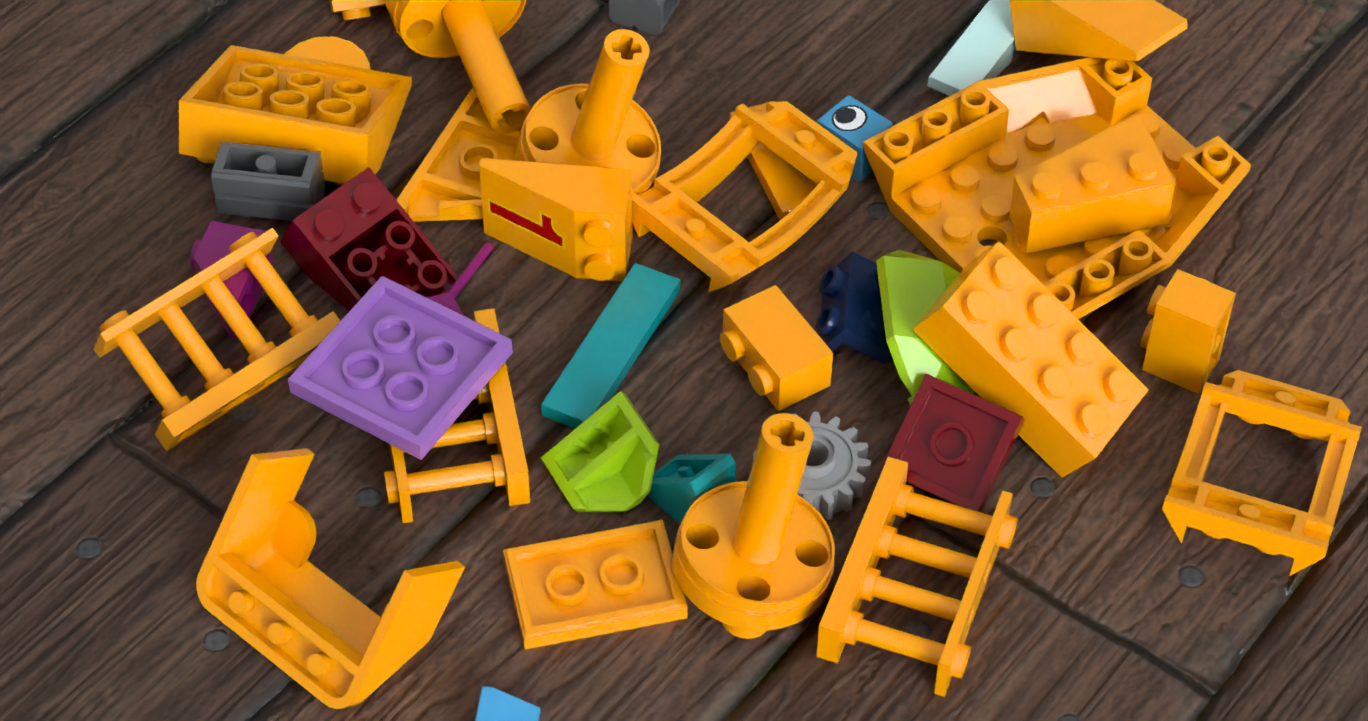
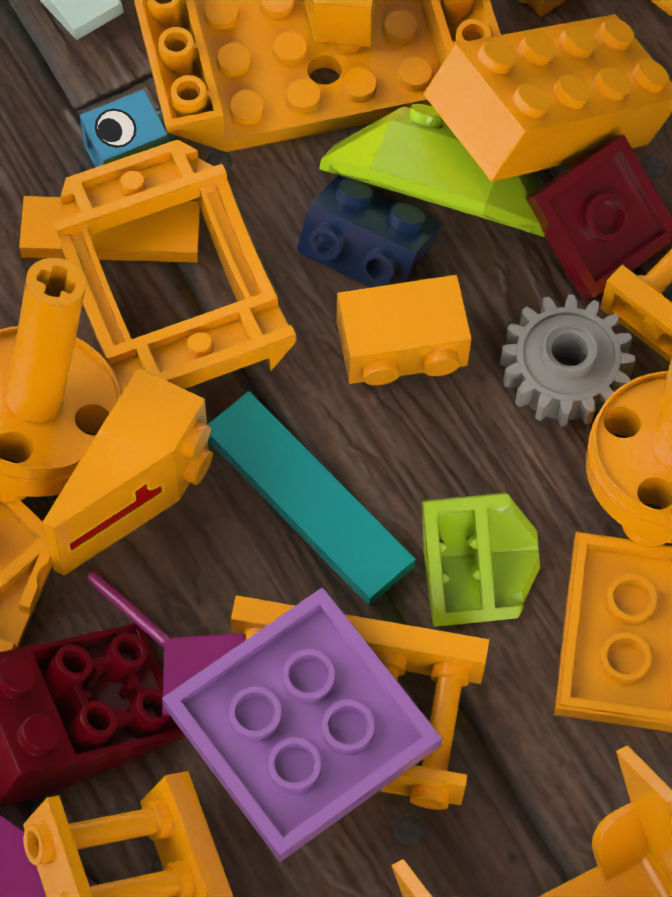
camera: 70 degrees left, 15 degrees up
(687, 478) = (554, 480): teal slope -> none

